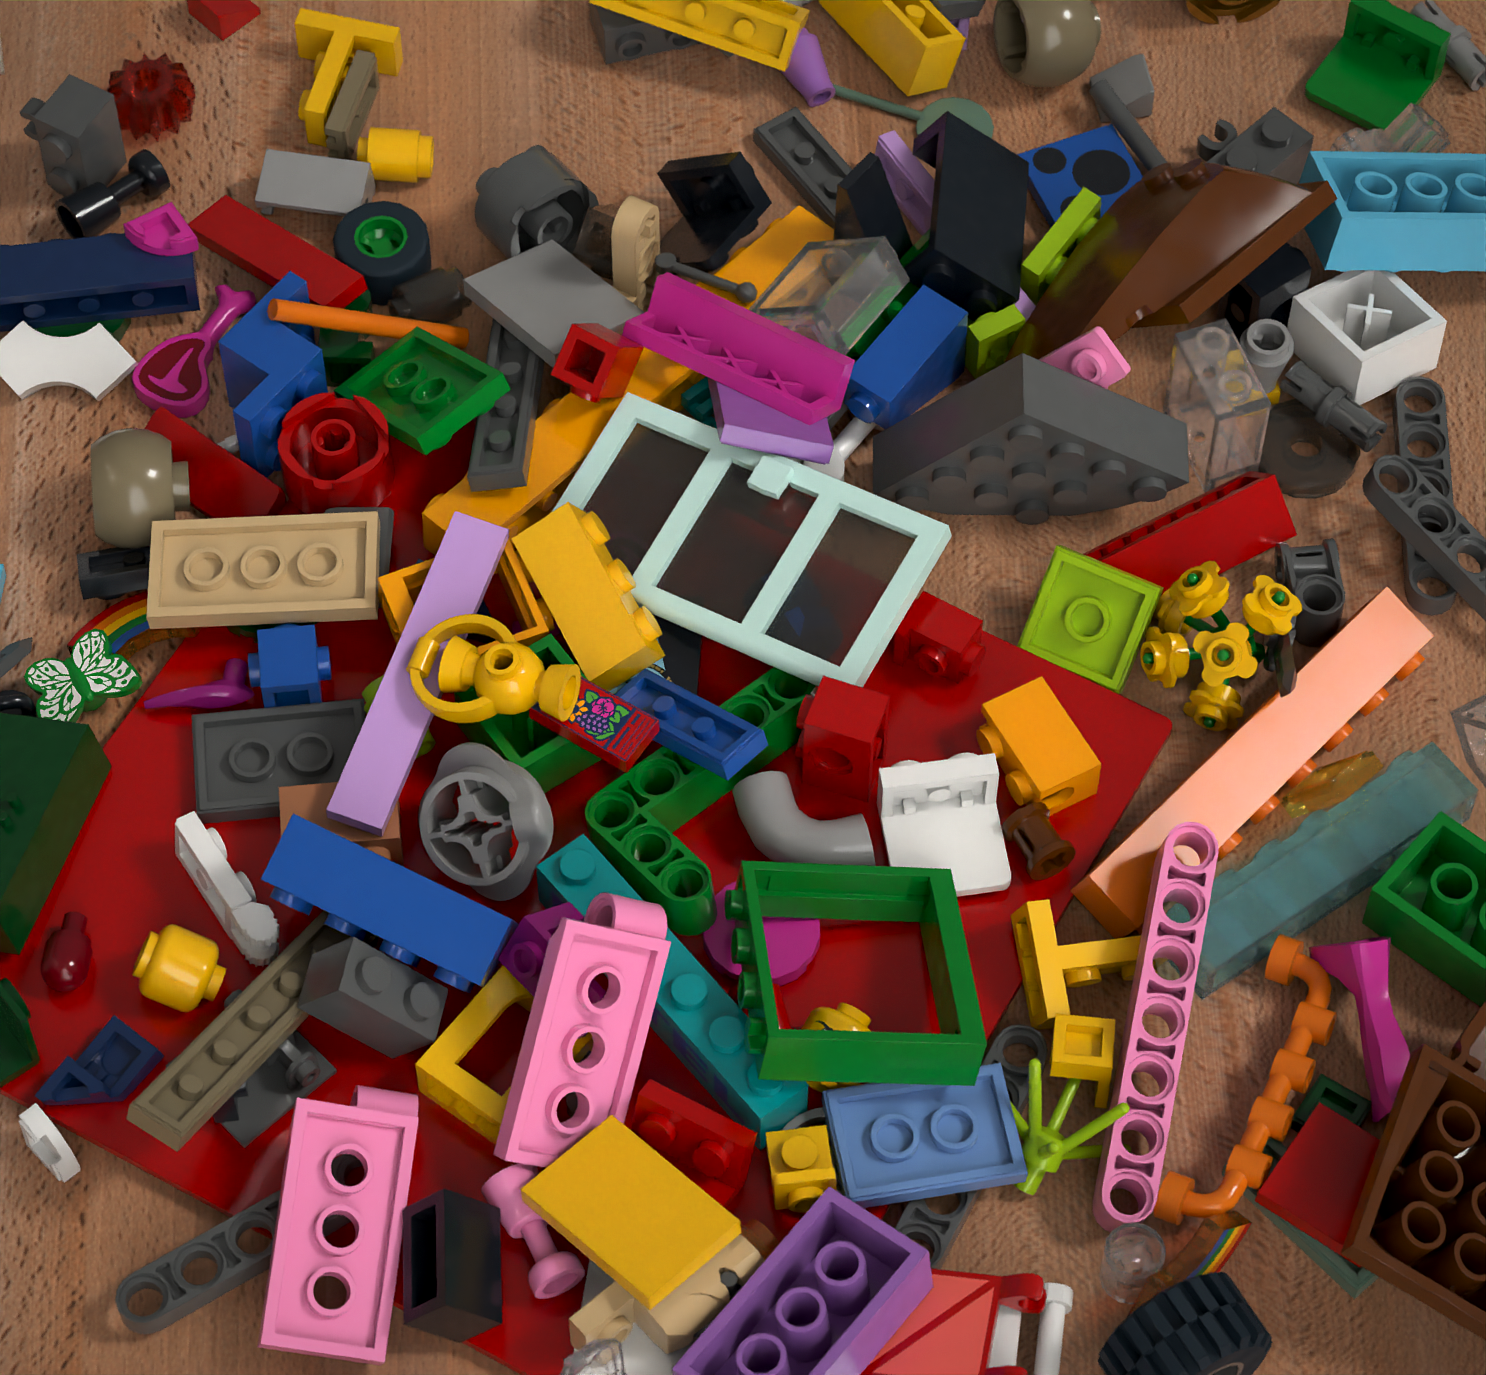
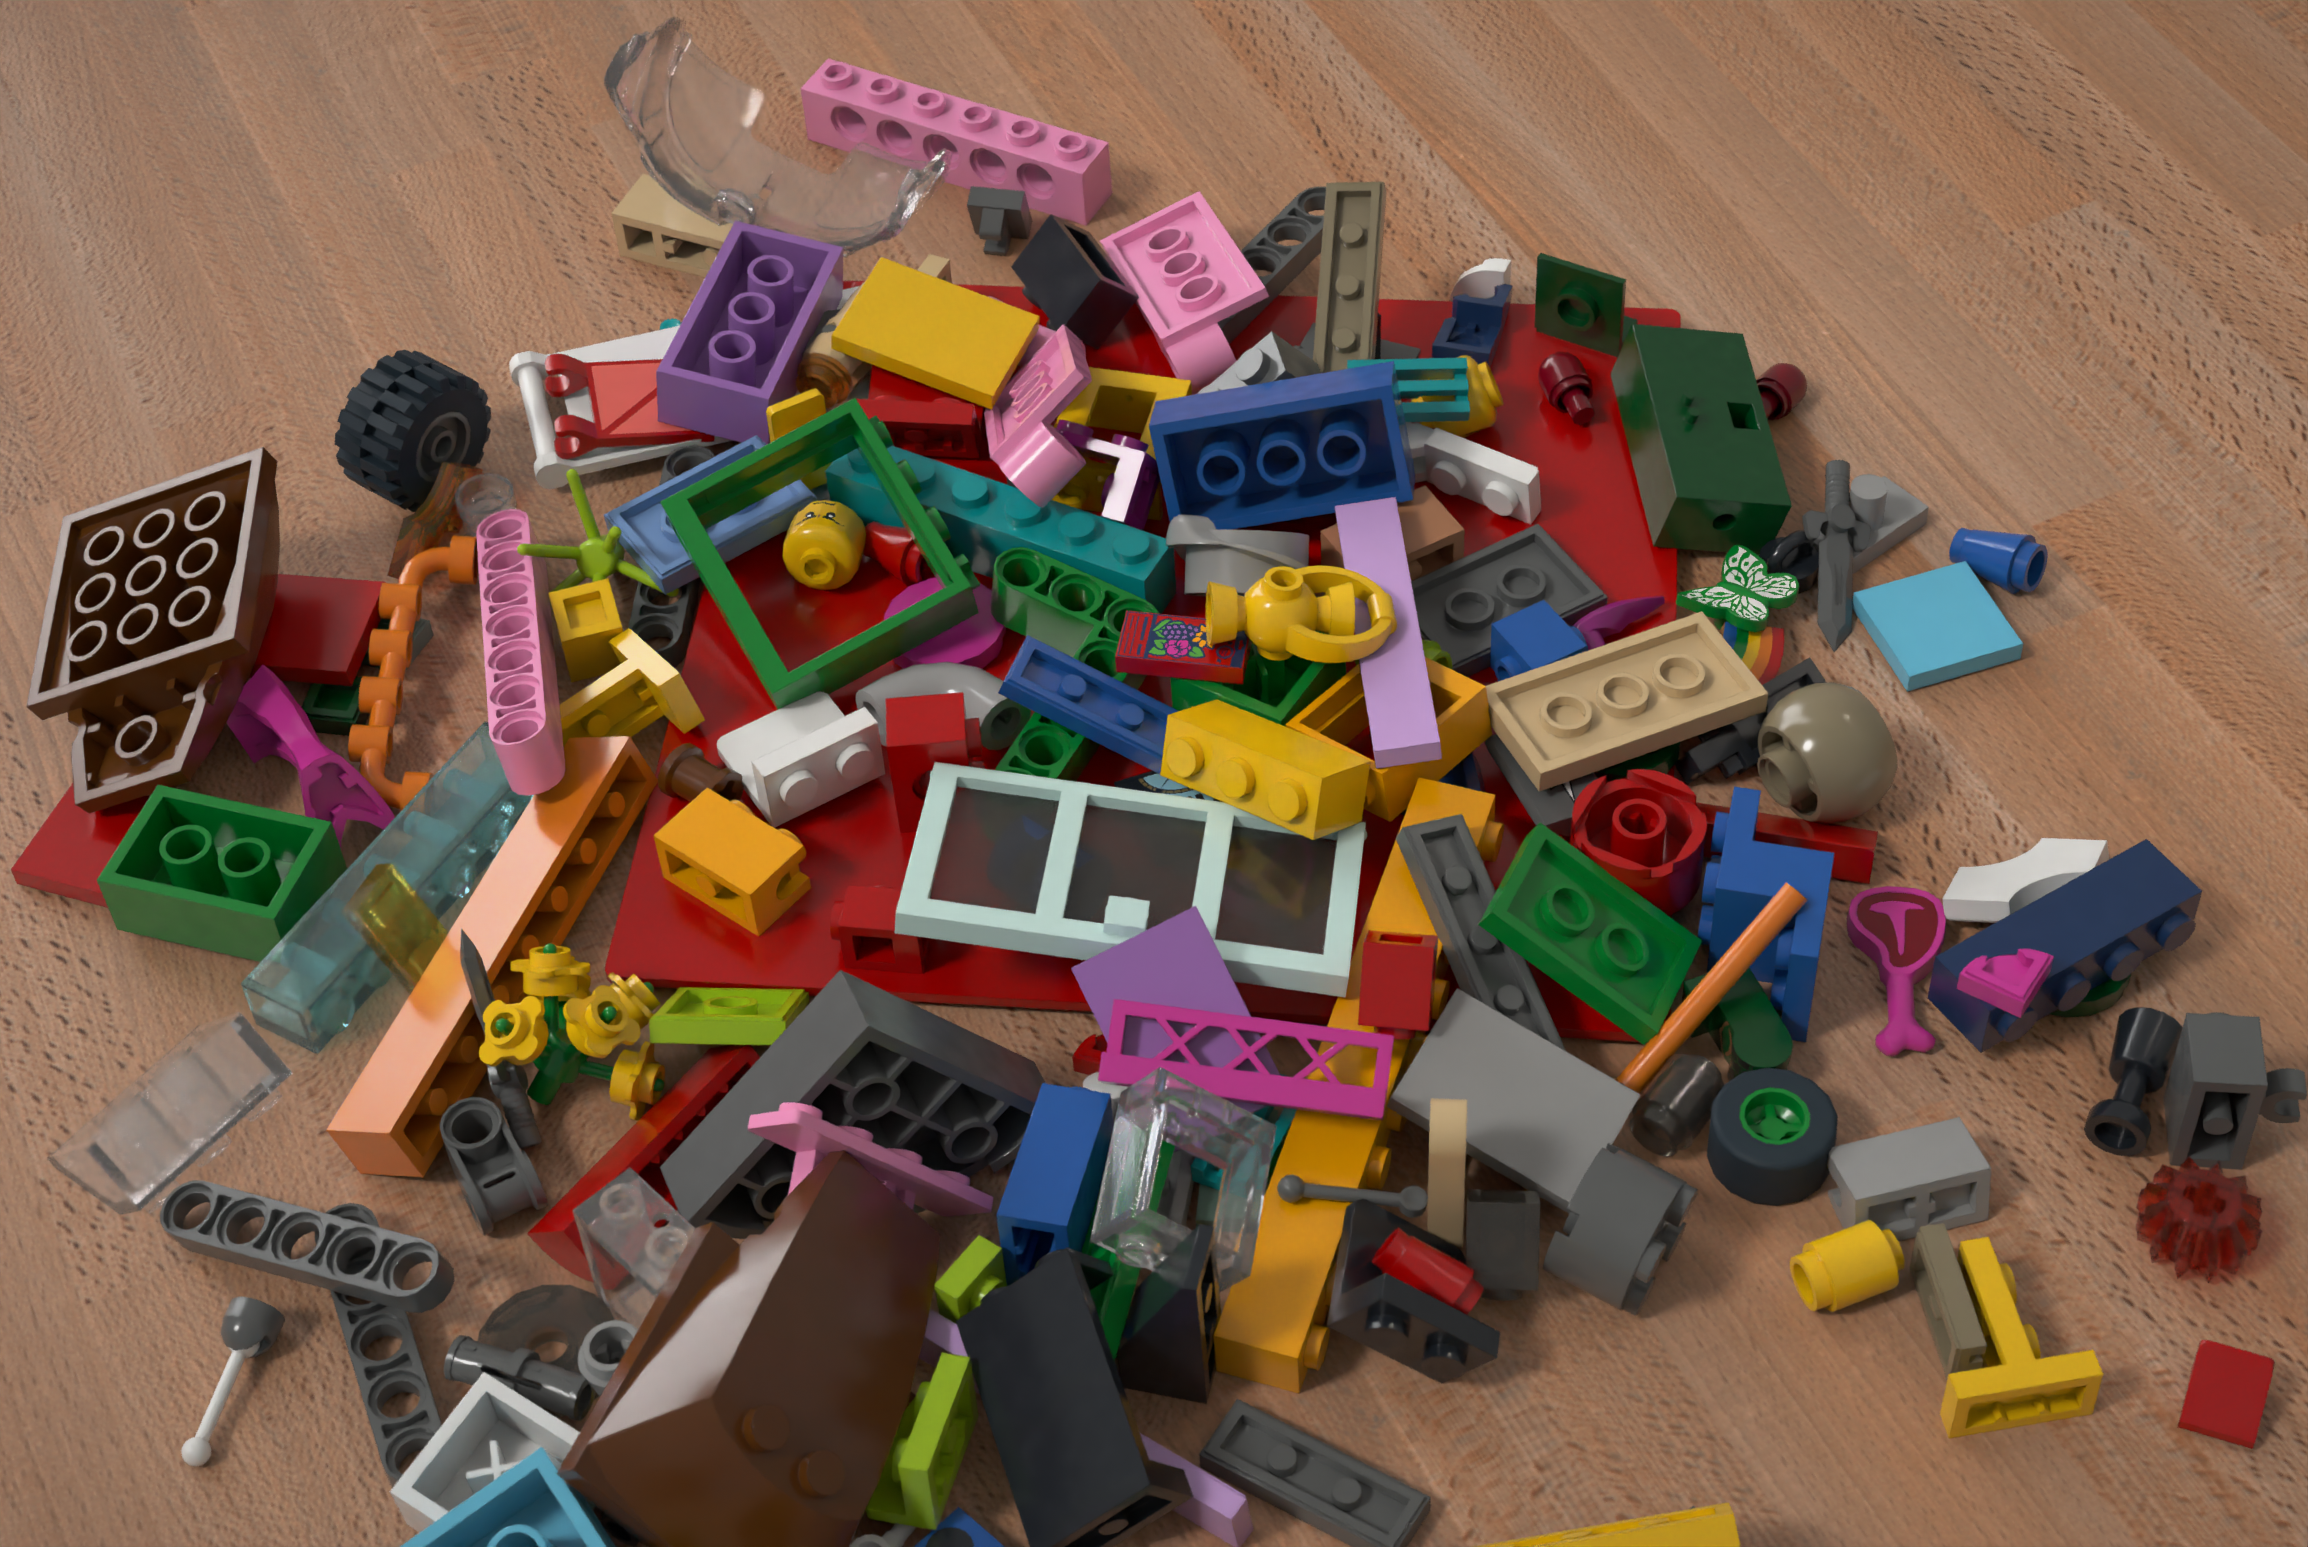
camera: 160 degrees right, 10 degrees down
(236, 939) = (1421, 381): none -> teal tile
(272, 252) = (1882, 1066): red tile -> none
(685, 212) = (1428, 1270): none -> red cone

